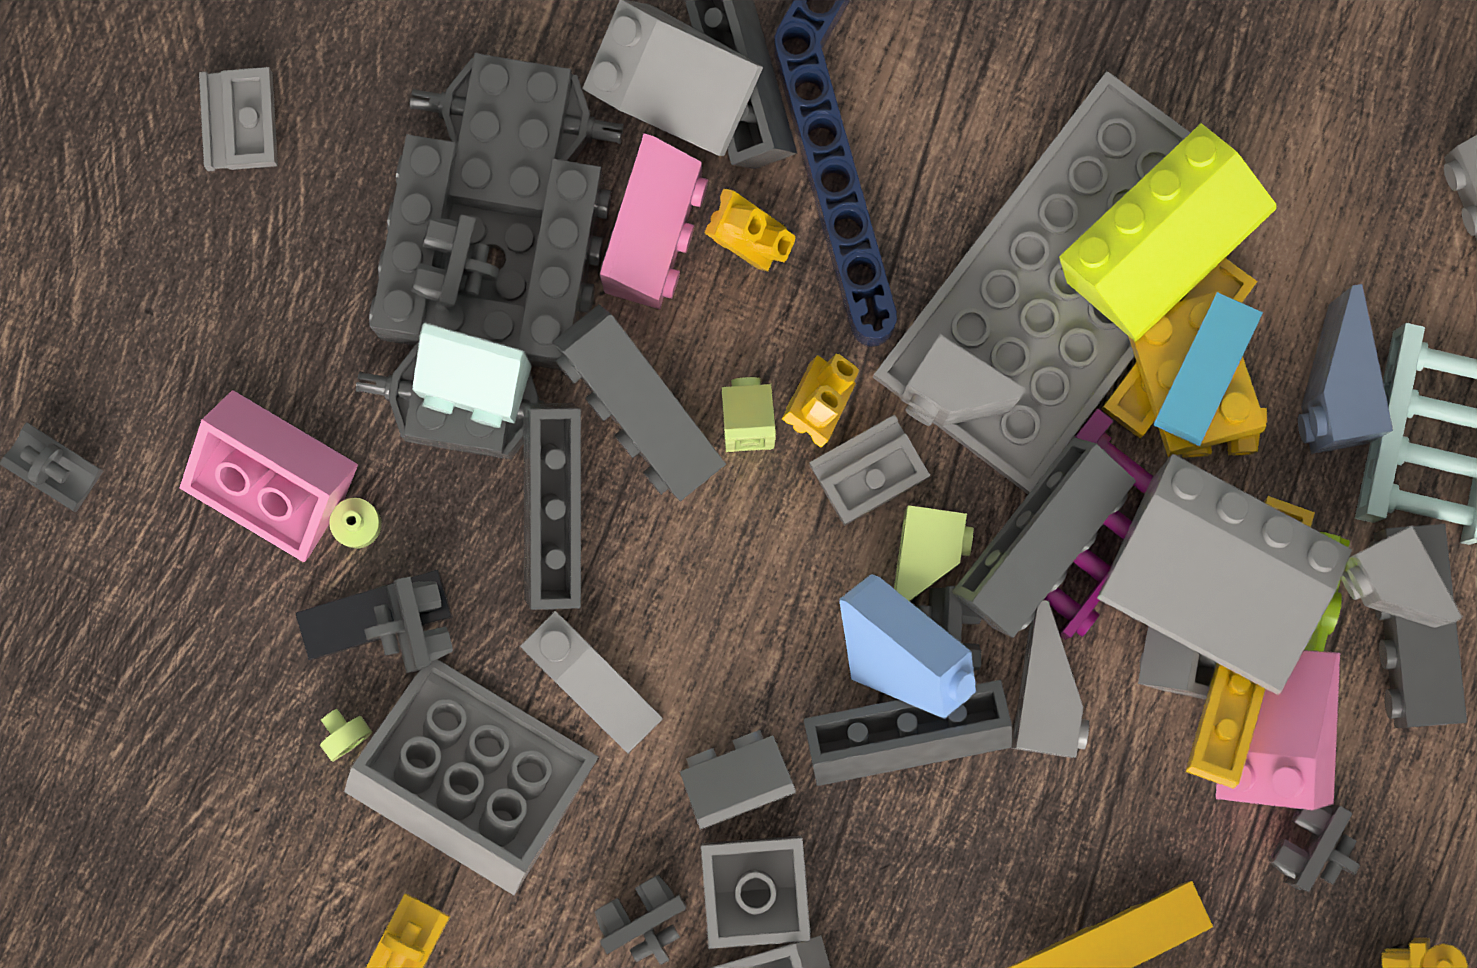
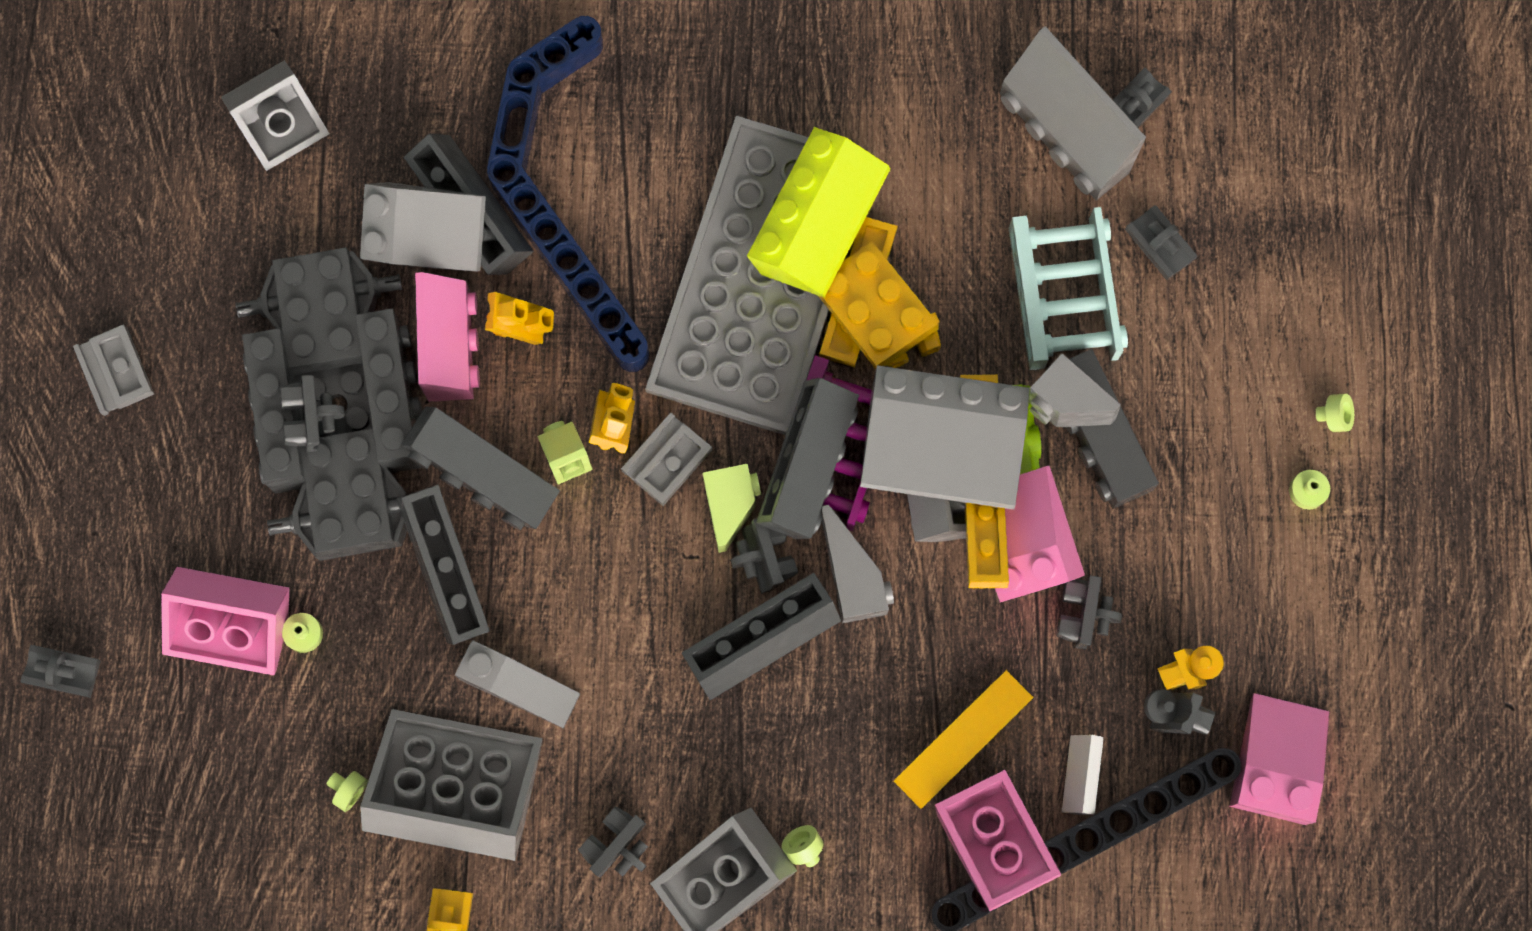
camera: 20 degrees left, 5 degrees down
(342, 622) = (339, 694): black tile -> none
(406, 603) = (360, 675): dark grey hips -> none
(470, 375) = (348, 488): light aqua slope -> none
(736, 780) = (649, 716): light grey slope -> none
(755, 892) = (690, 790): light grey slope -> none
(904, 650) = (735, 576): light blue slope -> none
(957, 387) = (707, 374): light grey slope -> none
(1208, 369) = (881, 297): medium azure tile -> none
(1345, 388) = (988, 282): sand blue slope -> none

